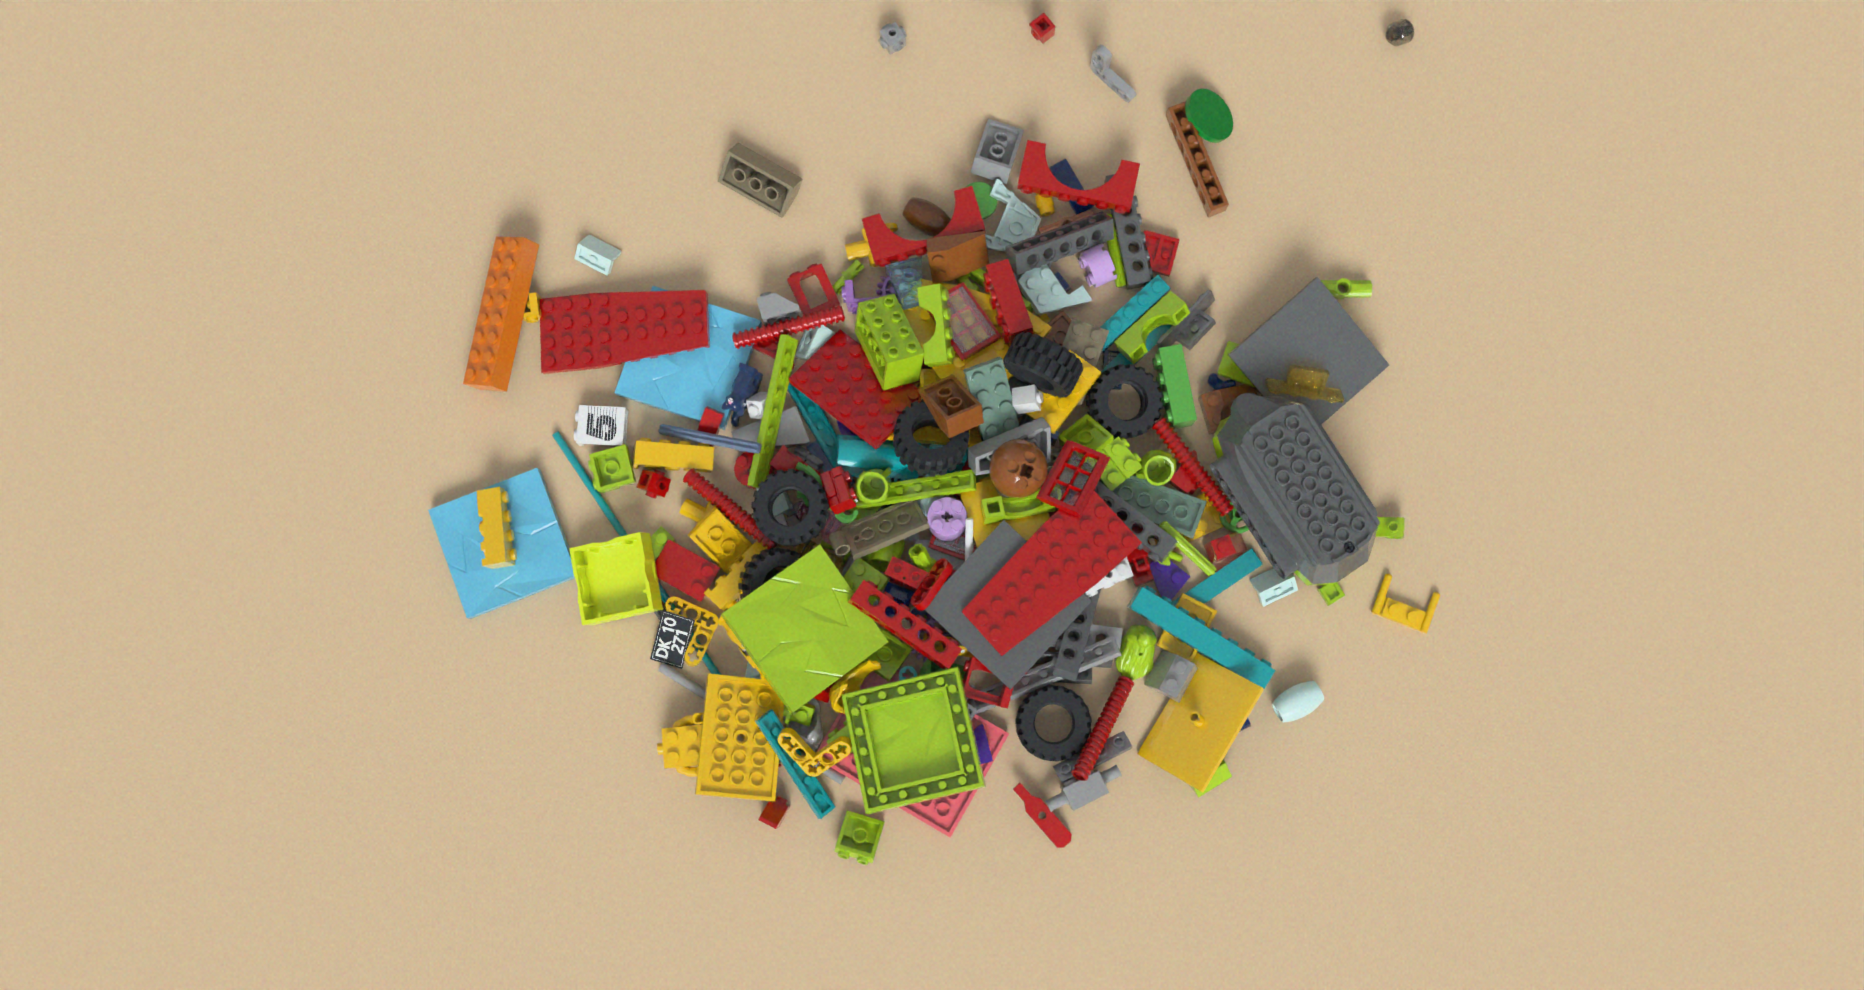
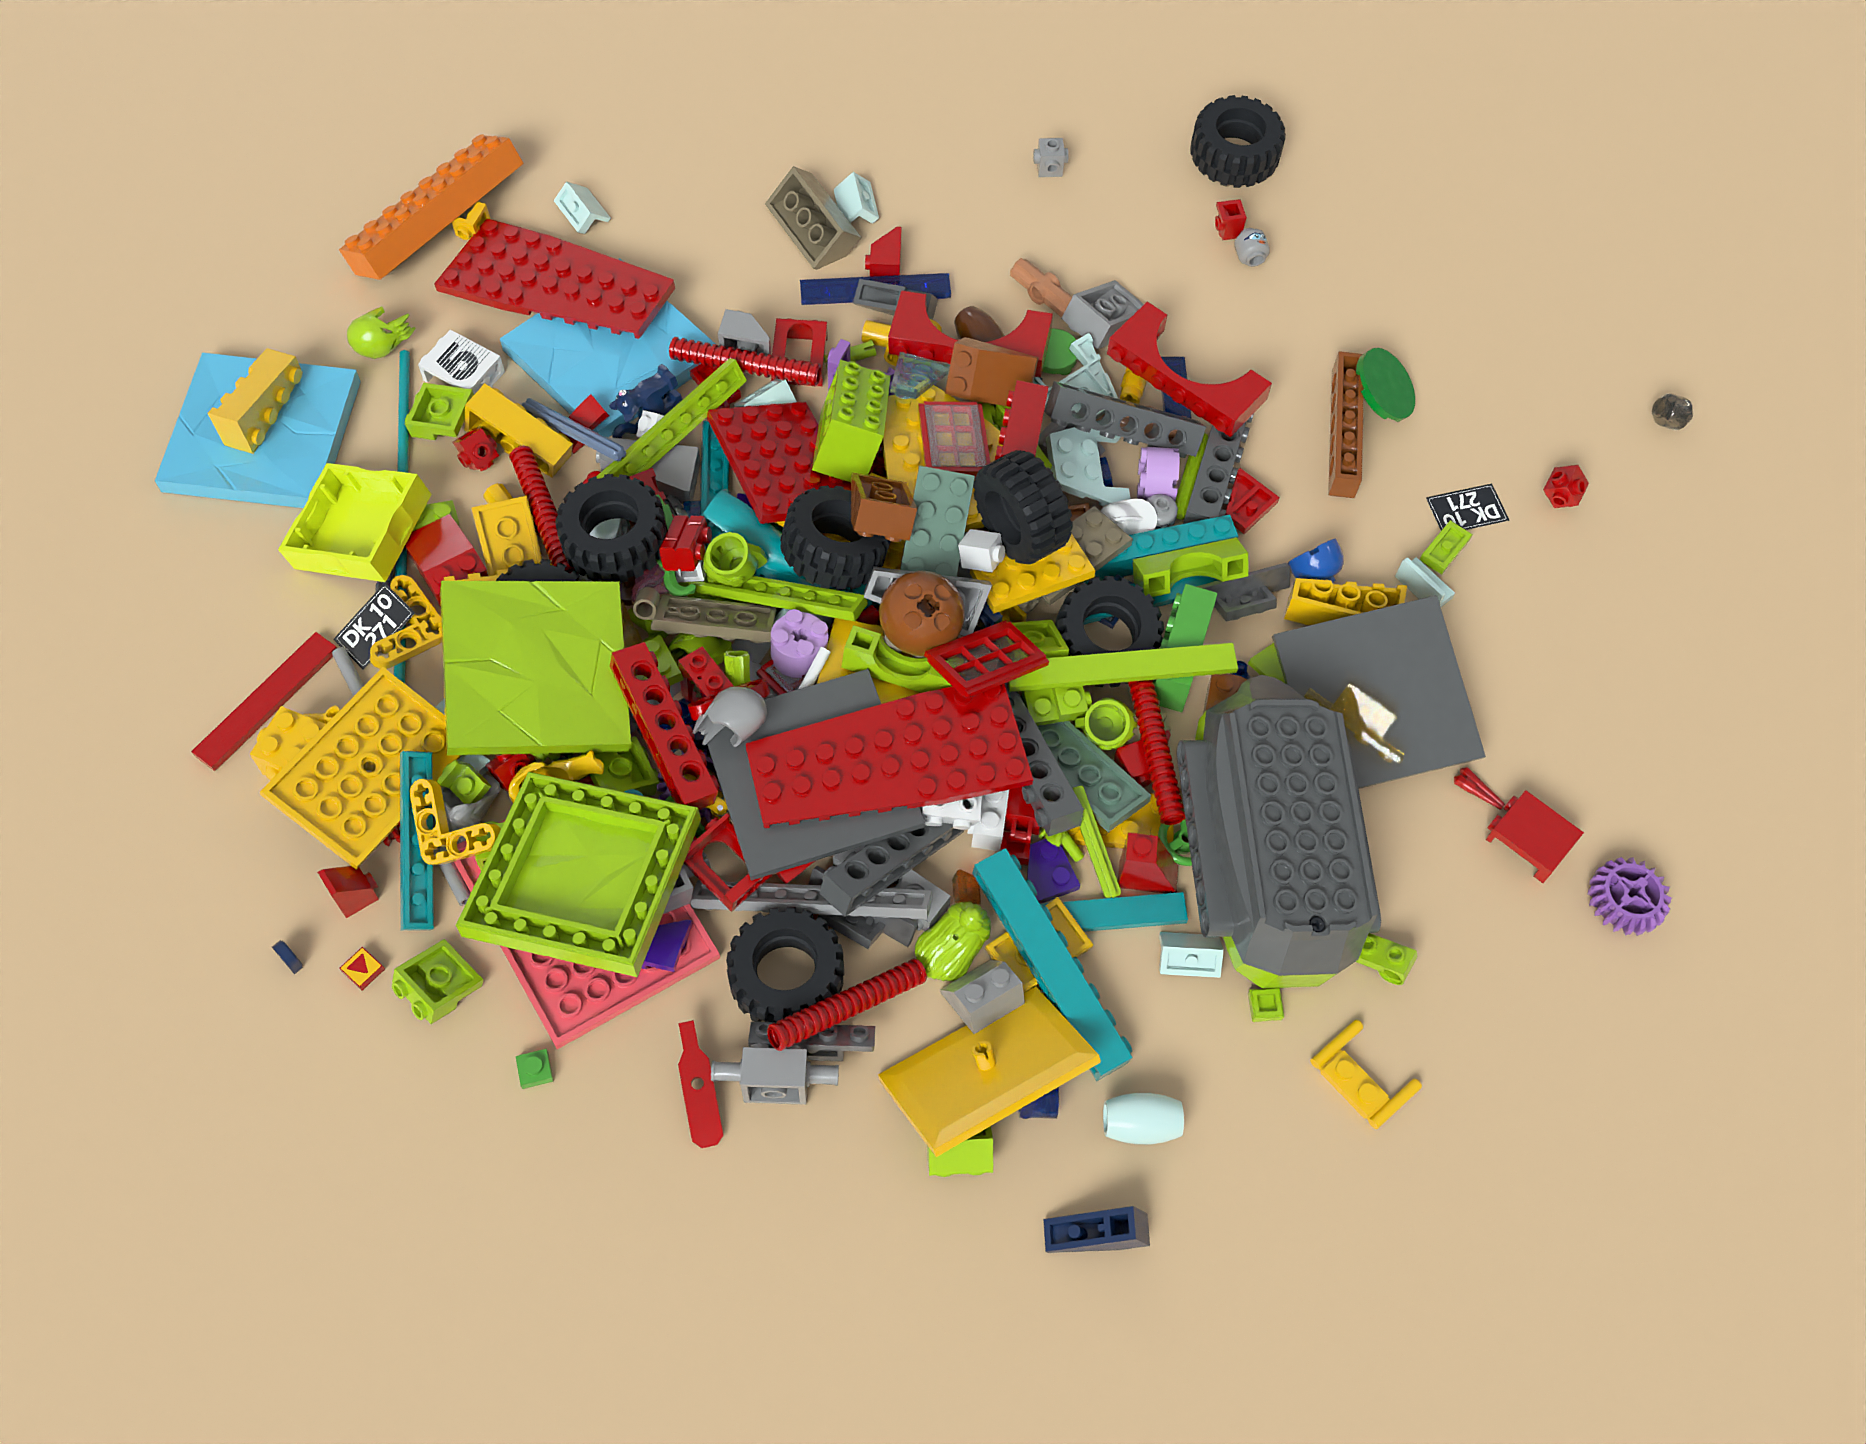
camera: 20 degrees right, 20 degrees down
(532, 437) = (371, 340): none -> lime helmet
(639, 722) = (264, 701): none -> red tile
(763, 869) = (287, 956): none -> dark blue tile
(779, 146) = (856, 198): none -> light aqua panel
(810, 852) = (362, 968): none -> tile
(827, 185) = (885, 254): none -> red slope
(833, 212) = (844, 289): none -> clear blue tile
(851, 218) = (885, 297): none -> dark grey slope
(938, 349) = (905, 446): lime arch -> none
(944, 854) = (534, 1068): none -> bright green plate
(945, 152) = (1040, 286): none -> nougat piece
(945, 598) = (735, 708): none -> light grey helmet
(1067, 42) = (1252, 247): none -> light grey head
(1094, 310) = (1132, 515): none -> white piece
(1100, 67) = (1279, 292): light grey beam -> none
(1110, 294) = (1165, 509): none -> light grey head
(1125, 615) = (965, 888): none -> clear orange slope
(1160, 424) = (1130, 667): none -> lime tile
(1227, 278) = (1319, 563): none -> blue cylinder
(1259, 301) = (1322, 601): none -> yellow wedge
(1298, 253) = (1423, 581): none -> light aqua panel
(1299, 178) = (1468, 507): none -> black sticker
(1299, 219) = (1445, 547): none -> lime plate
(1304, 777) = (1097, 1231): none -> dark blue slope
(1353, 288) = (1476, 651): lime piece -> none
(1356, 133) = (1566, 486): none -> red brick
(1390, 383) = (1472, 784): none -> red piece
(1438, 399) = (1535, 833): none -> red panel
(1514, 397) = (1629, 896): none -> medium lavender gear

